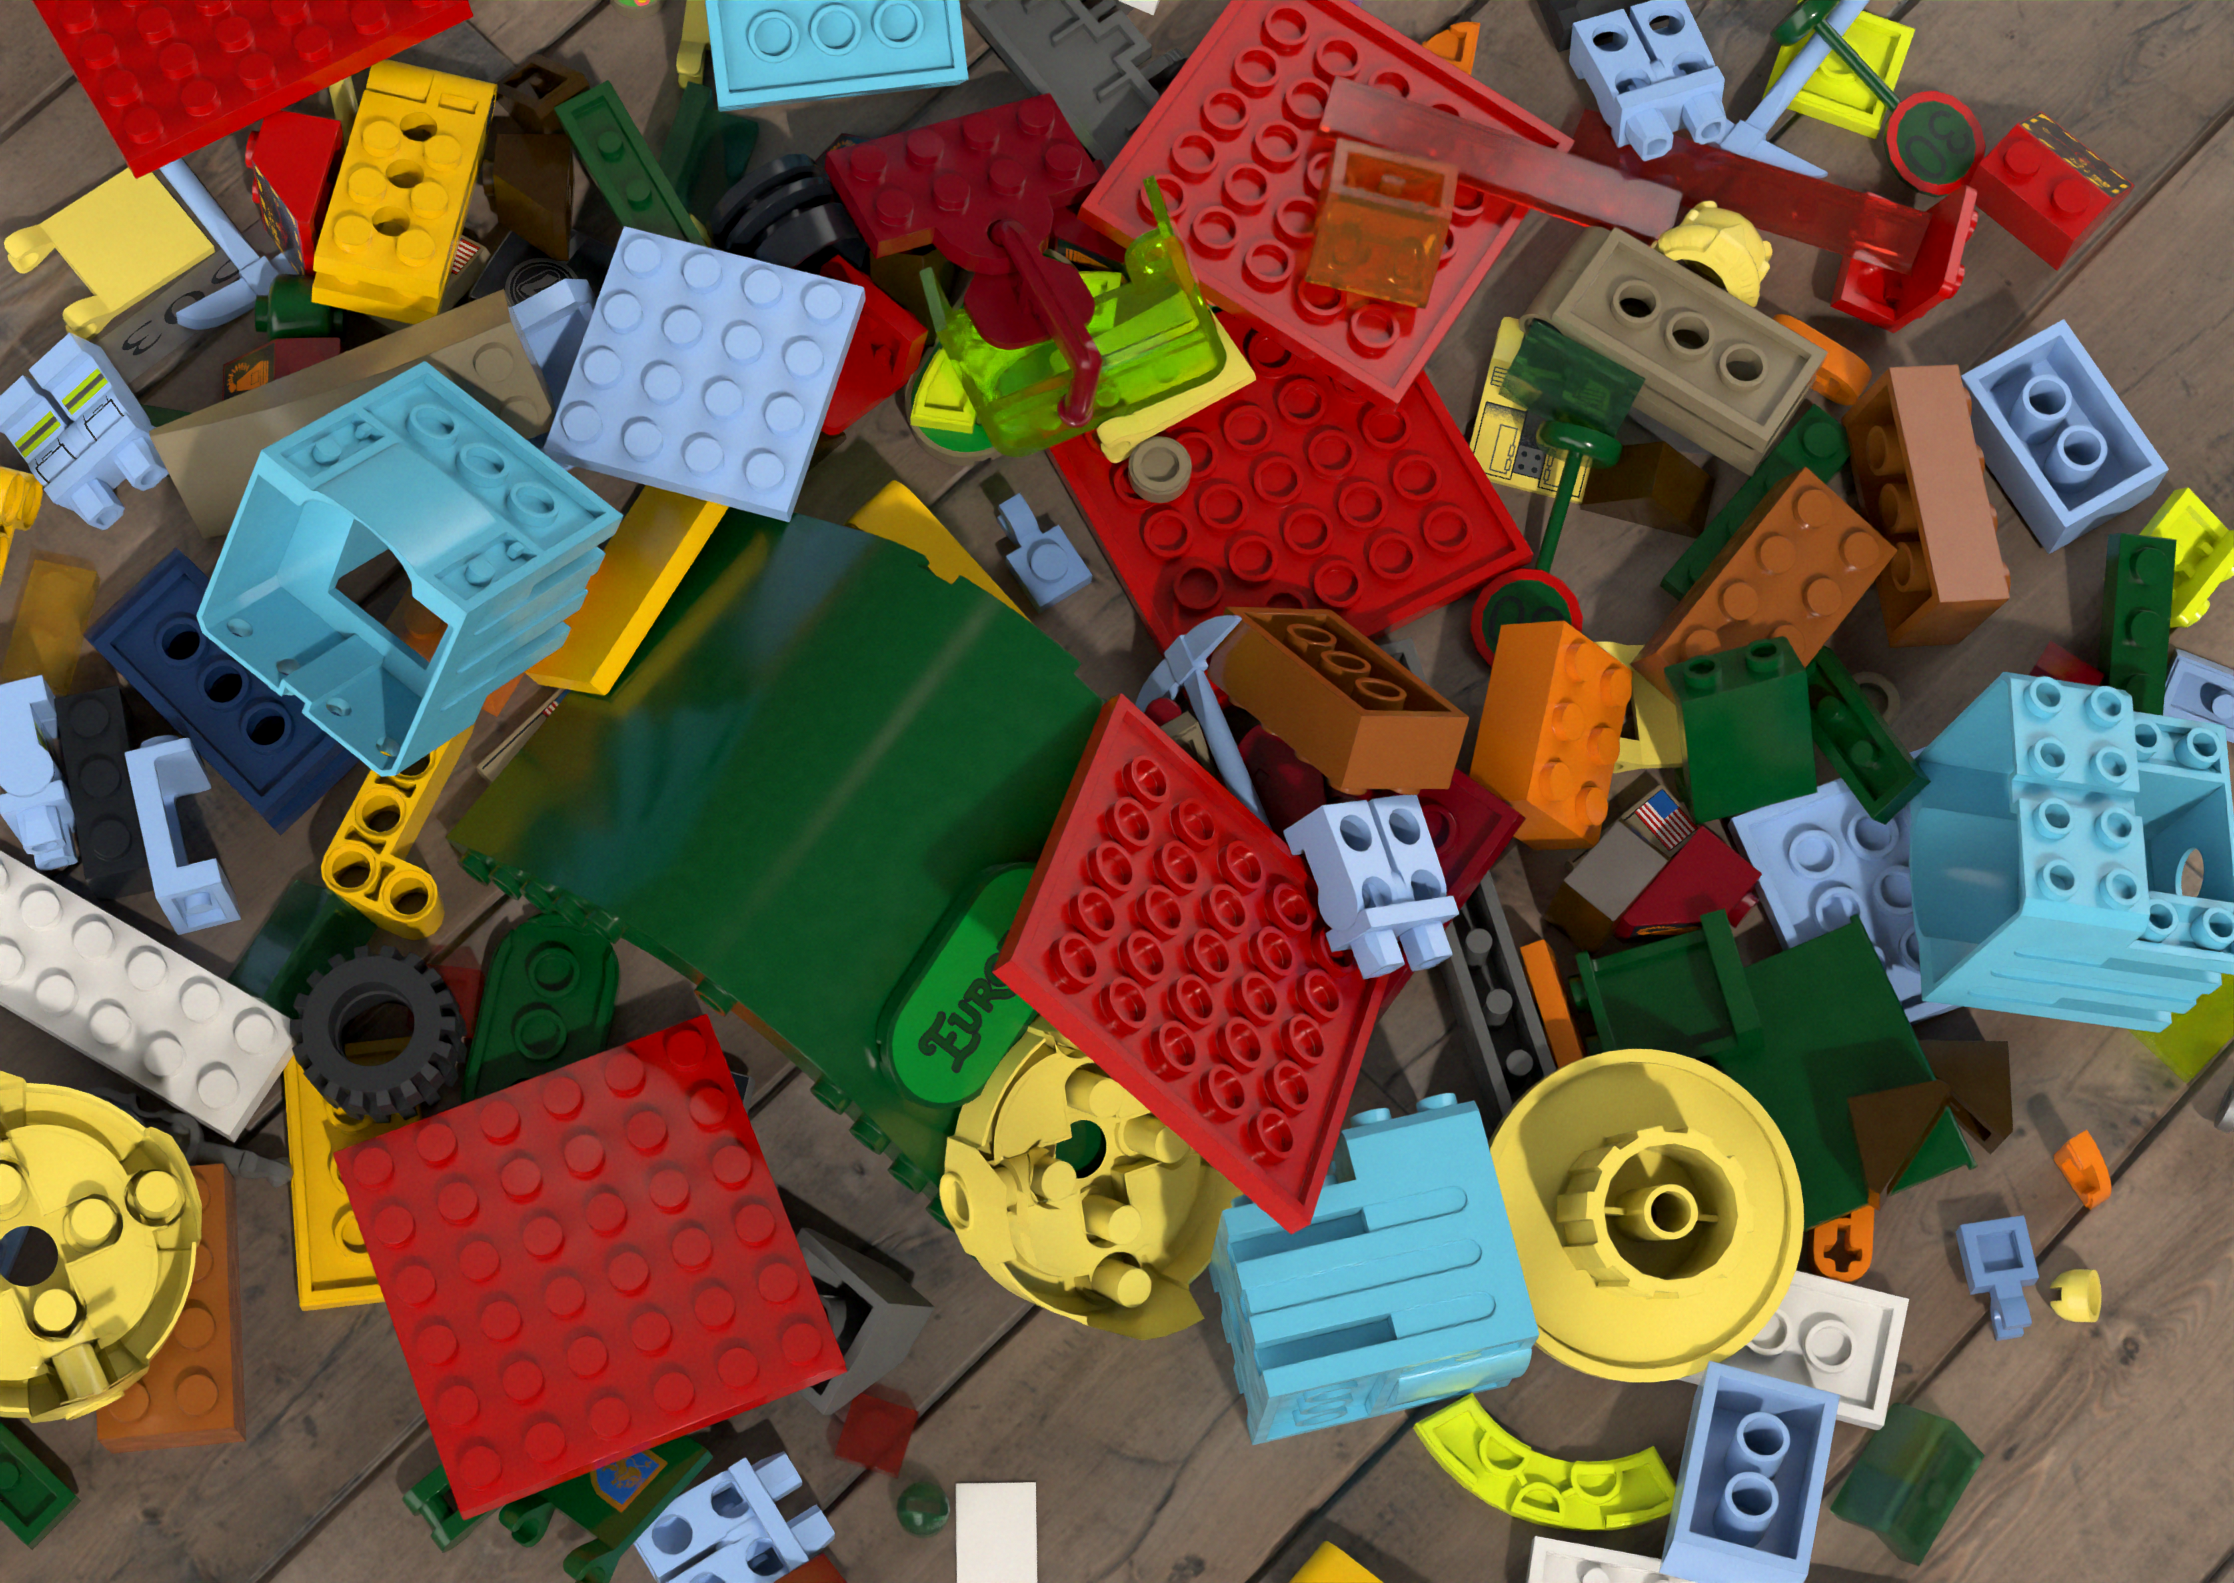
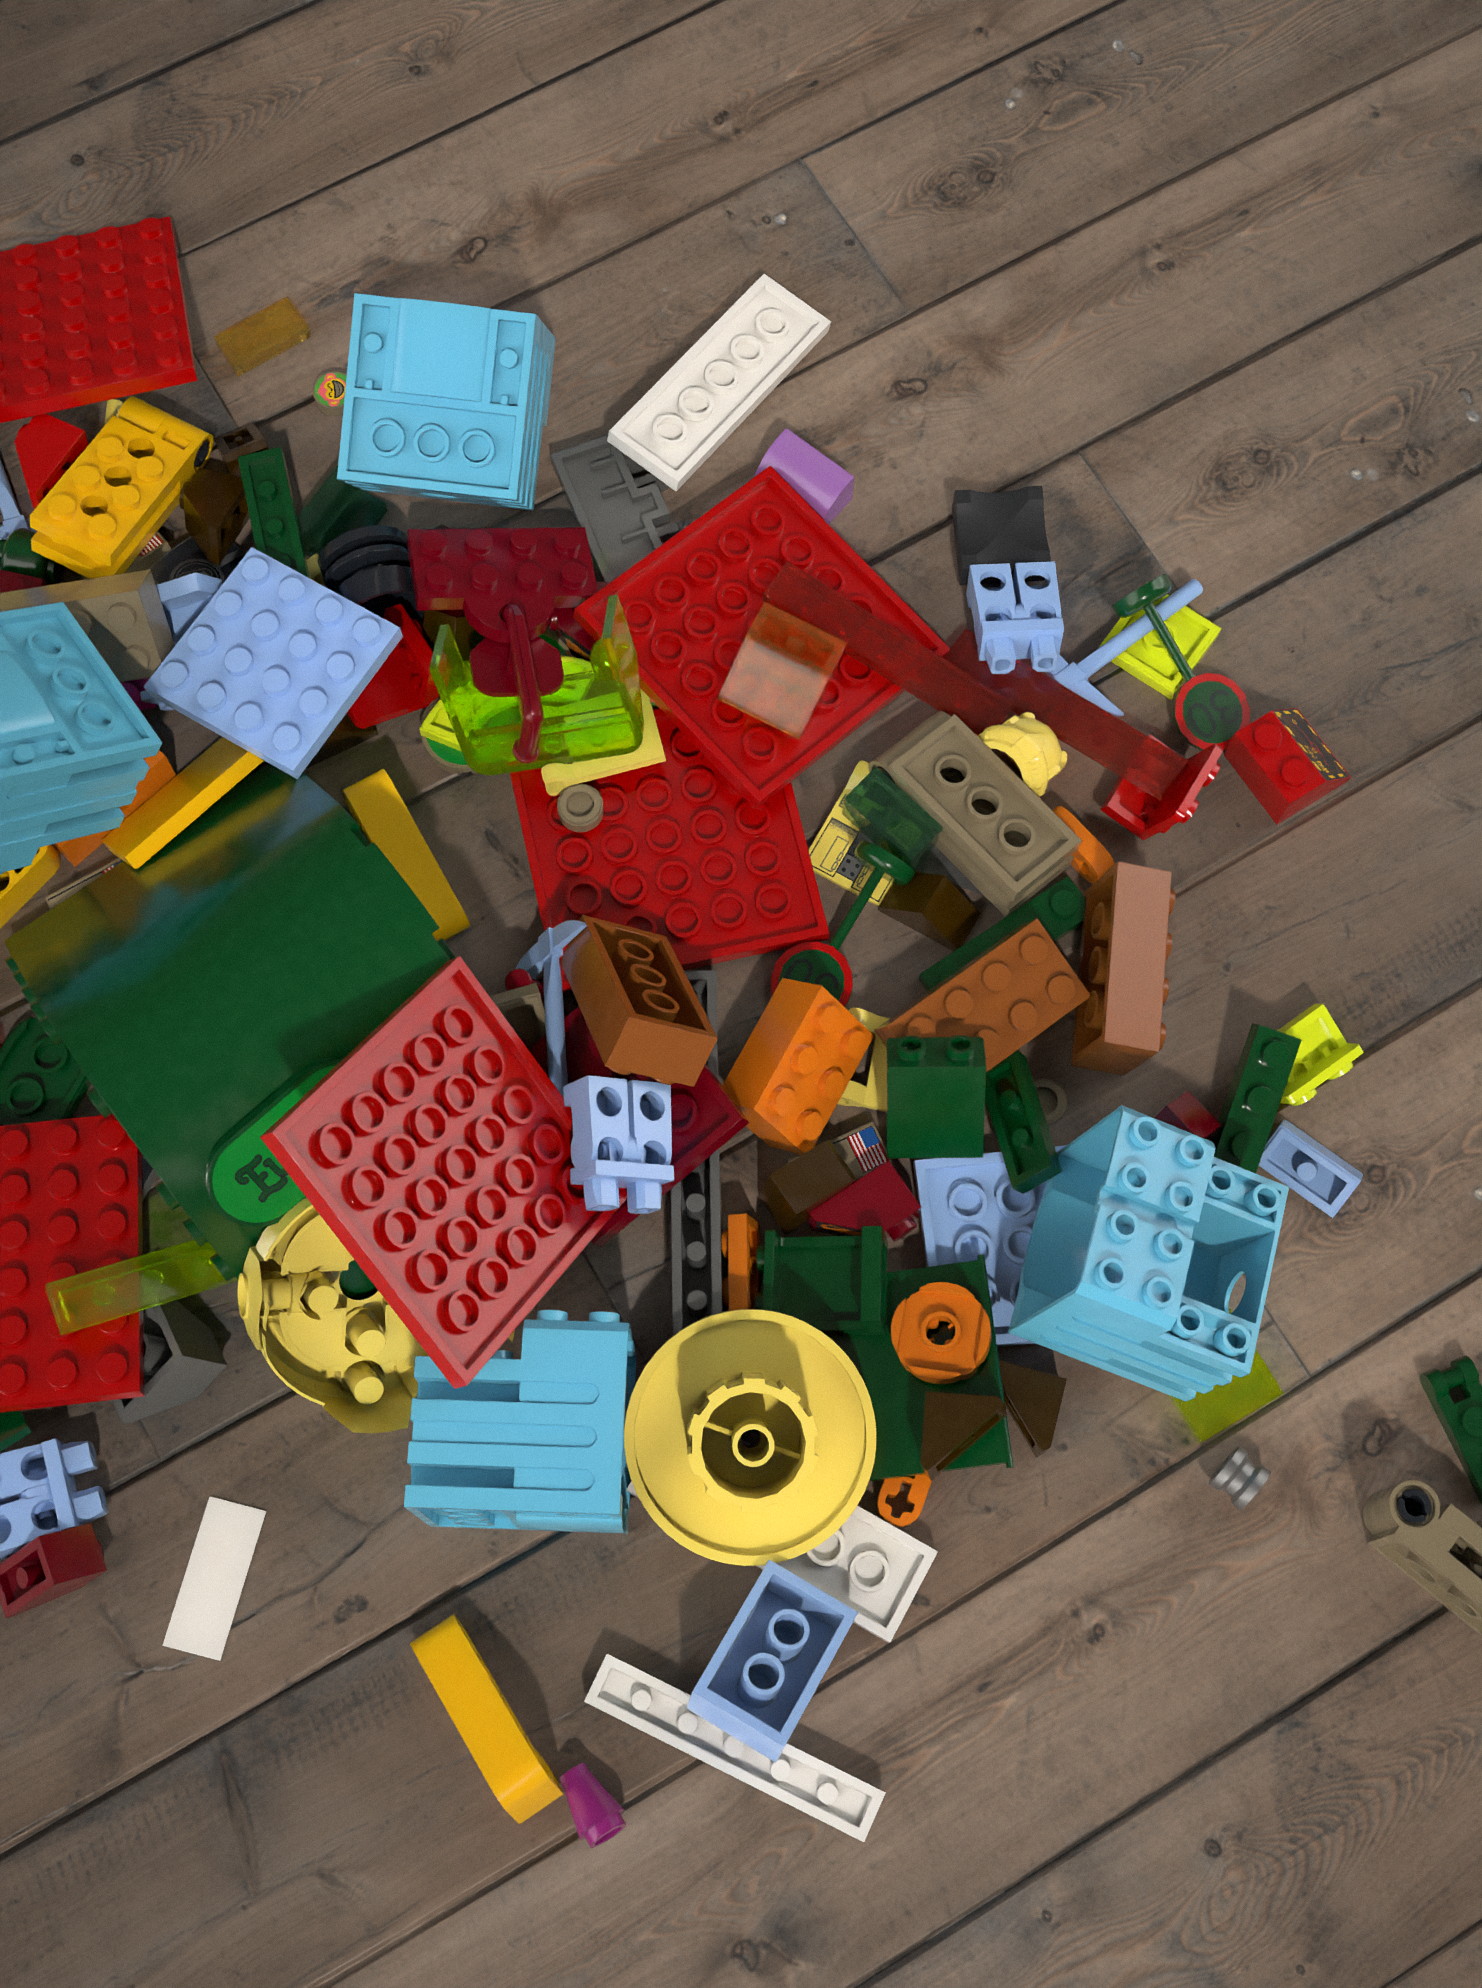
camera: 20 degrees right, 0 degrees up
(798, 1229) = (133, 1285): none -> clear neon green tile
(876, 1435) = (163, 1446): clear red plate -> none
(921, 1523) = (183, 1498): clear green hinge -> none
(1043, 563) = (483, 853): medium blue plate -> none
(1456, 45) = (888, 564): orange tile -> none
(1540, 1487) = (625, 1615): neon yellow tile -> none
(1807, 1002) = (958, 1356): none -> orange plate
(1908, 1481) = (898, 1689): clear green panel -> none
(2000, 1262) = (1016, 1541): medium blue plate -> none
(2059, 437) = (1237, 943): light blue brick -> none
(2079, 1295) = (1068, 1583): light yellow hinge -> none
(2084, 1169) = (1100, 1489): orange tile -> none

